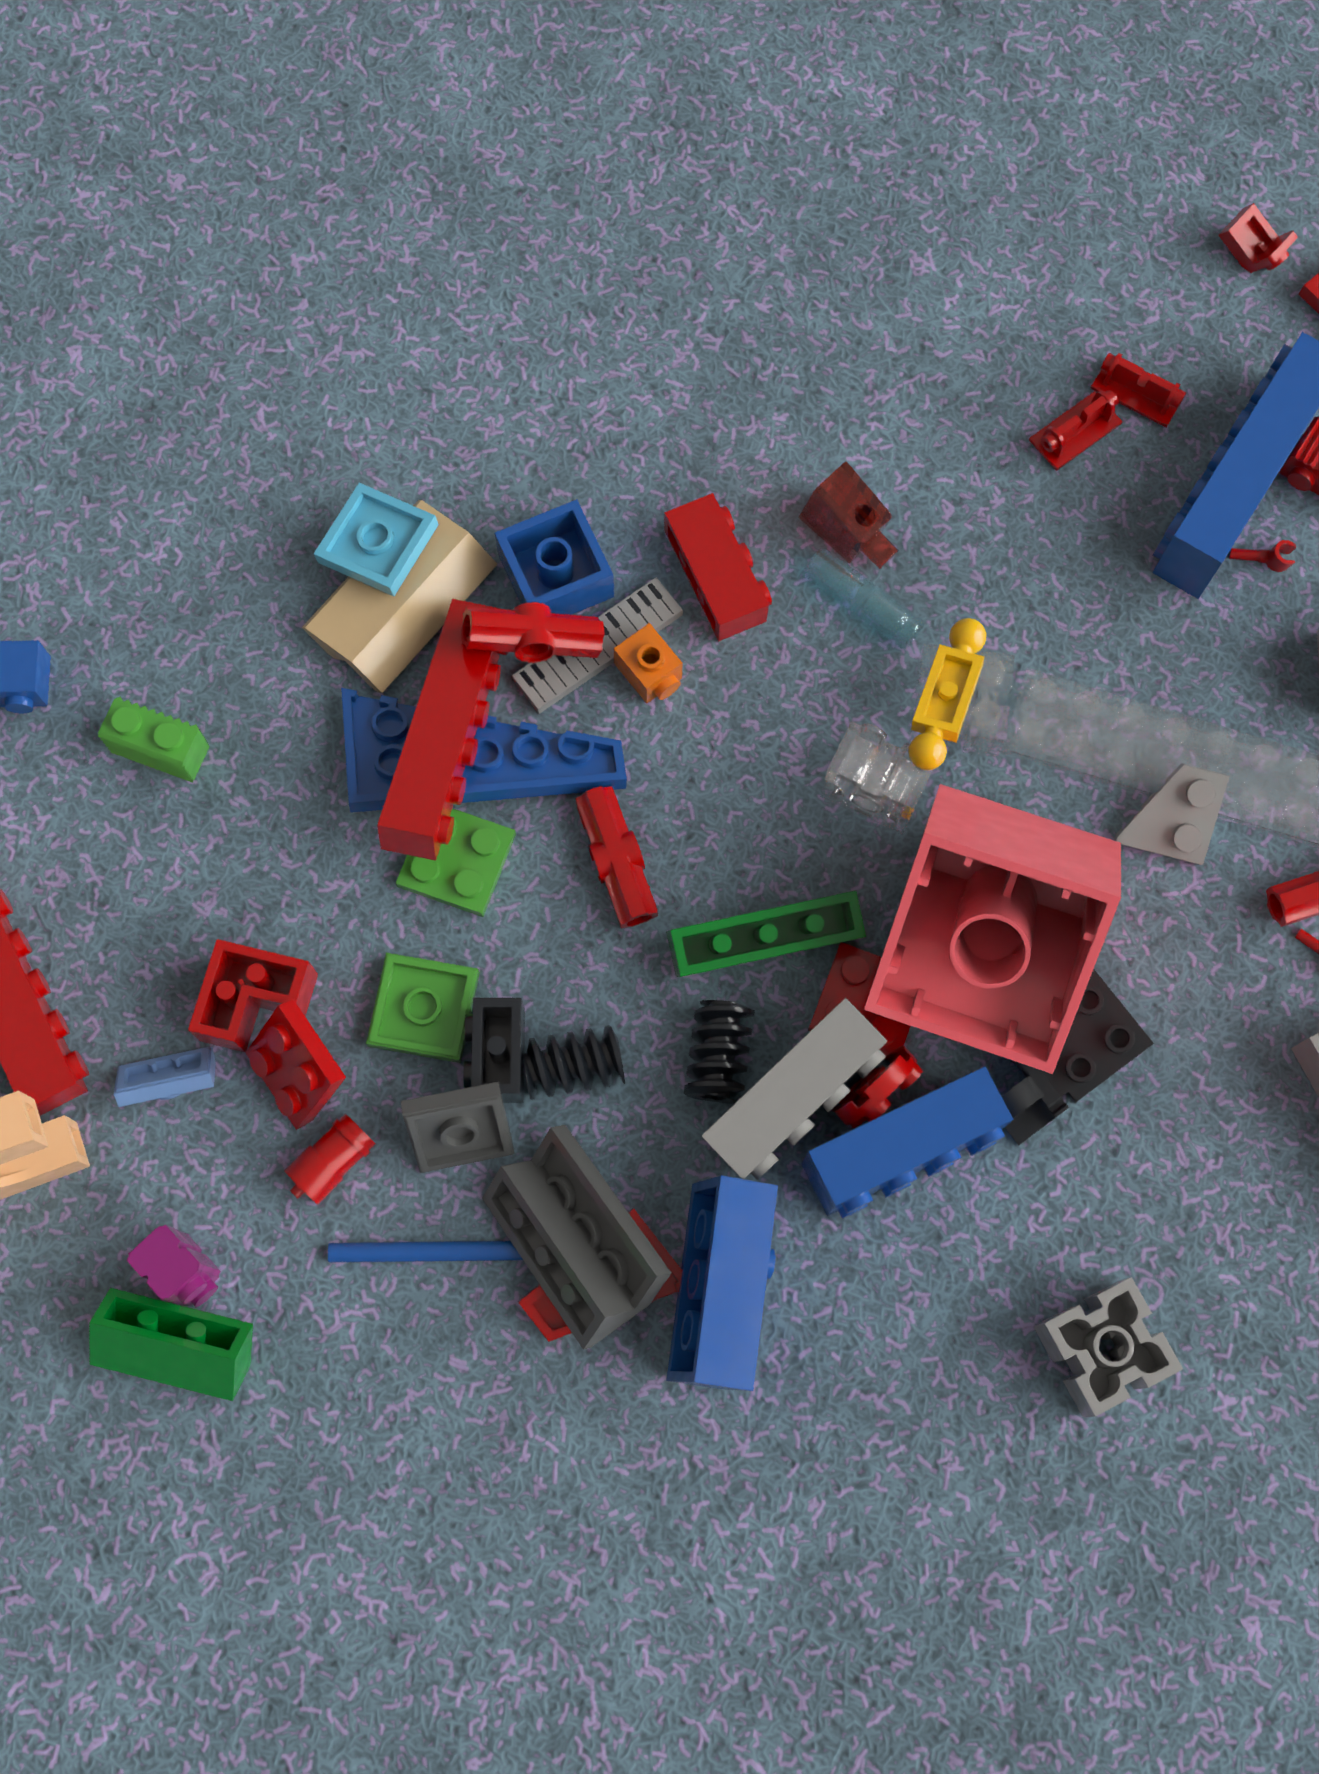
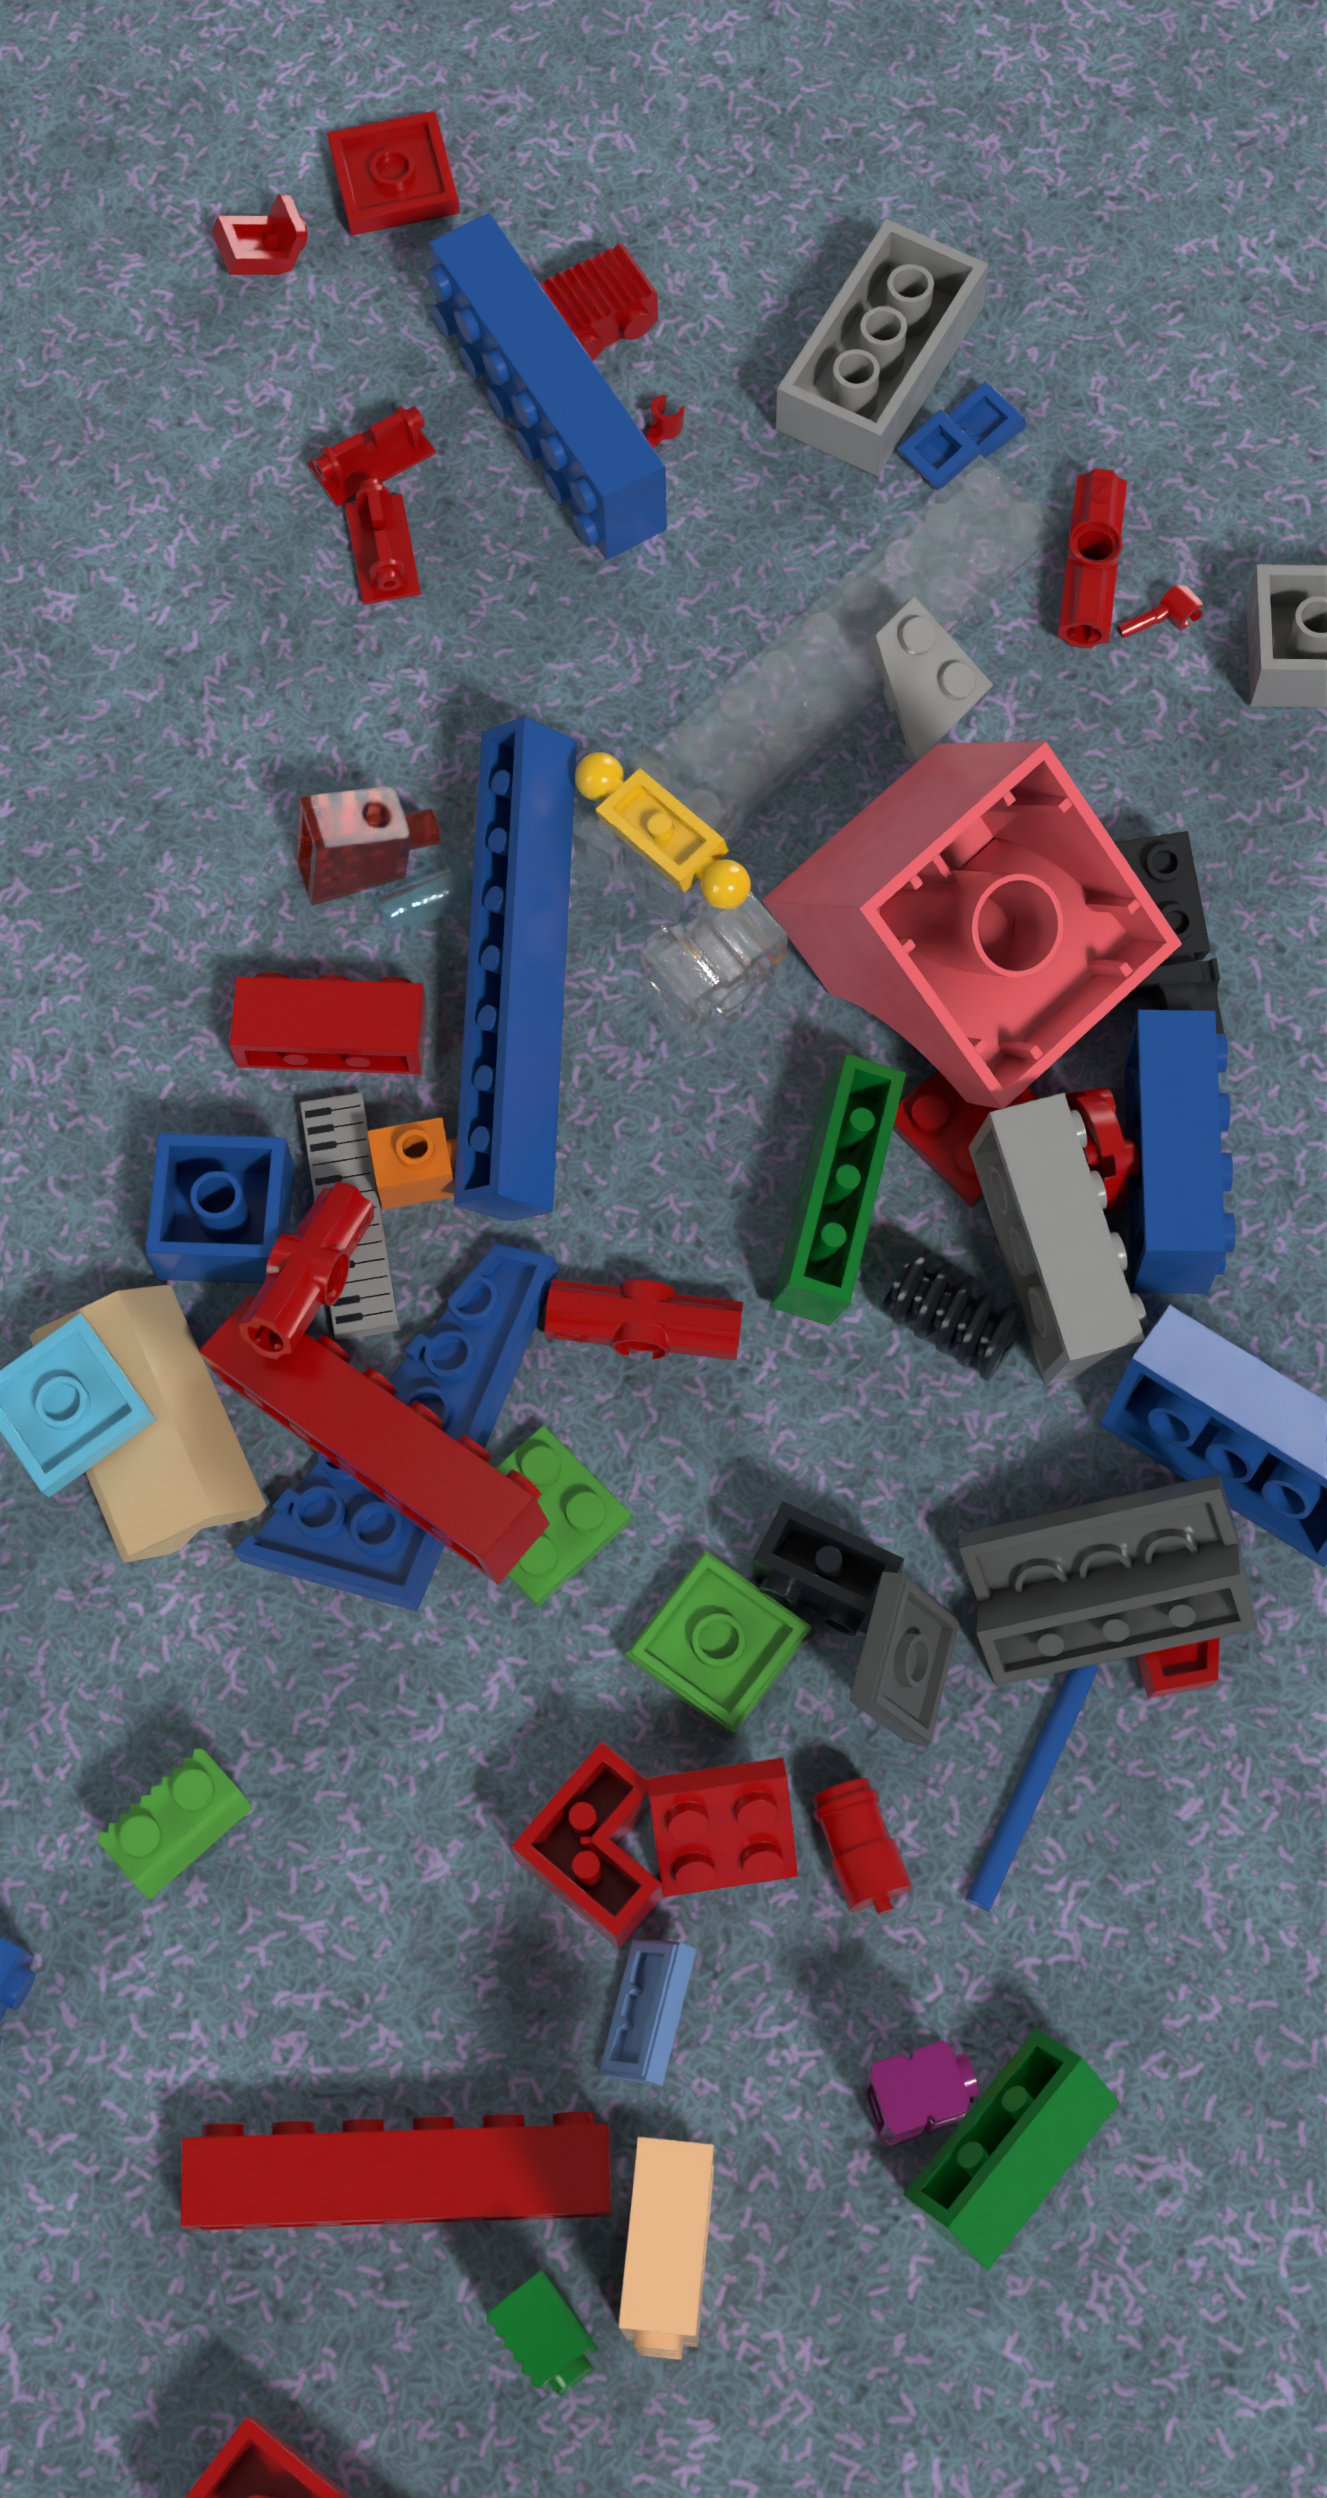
camera: 60 degrees left, 5 degrees down
(573, 1062) = (883, 1478): black piece -> none
(809, 655) = (516, 972): none -> blue brick

